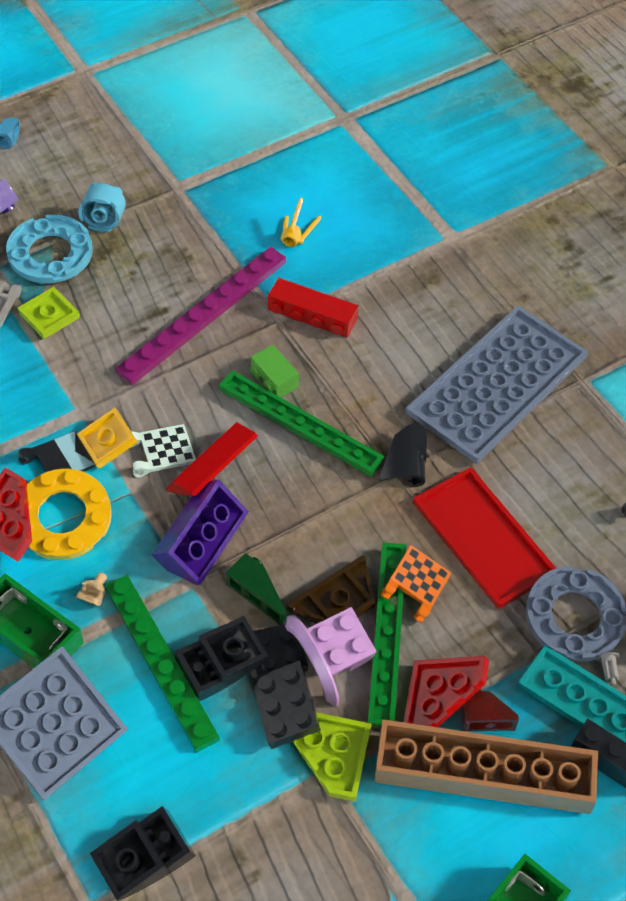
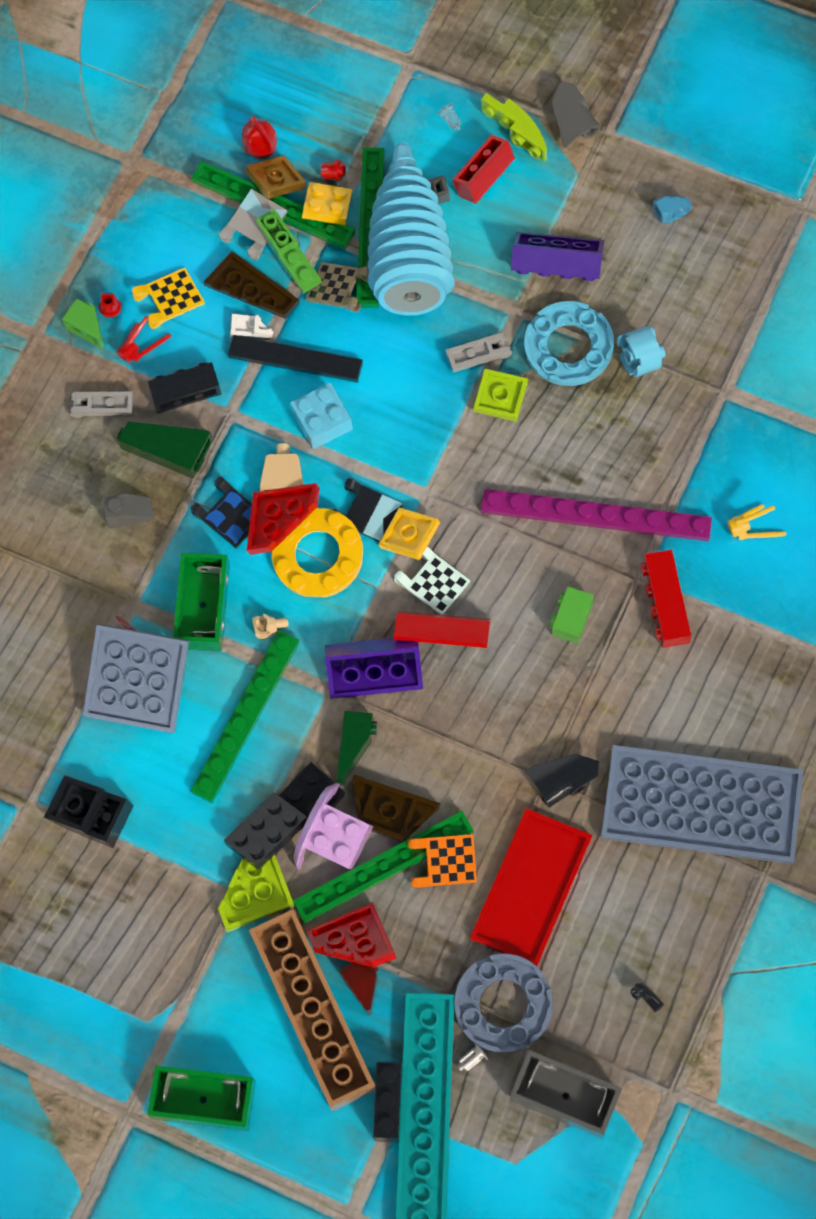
camera: 65 degrees right, 15 degrees up
(221, 657) = (273, 757): black slope -> none
(302, 423) = (536, 672): green plate -> none

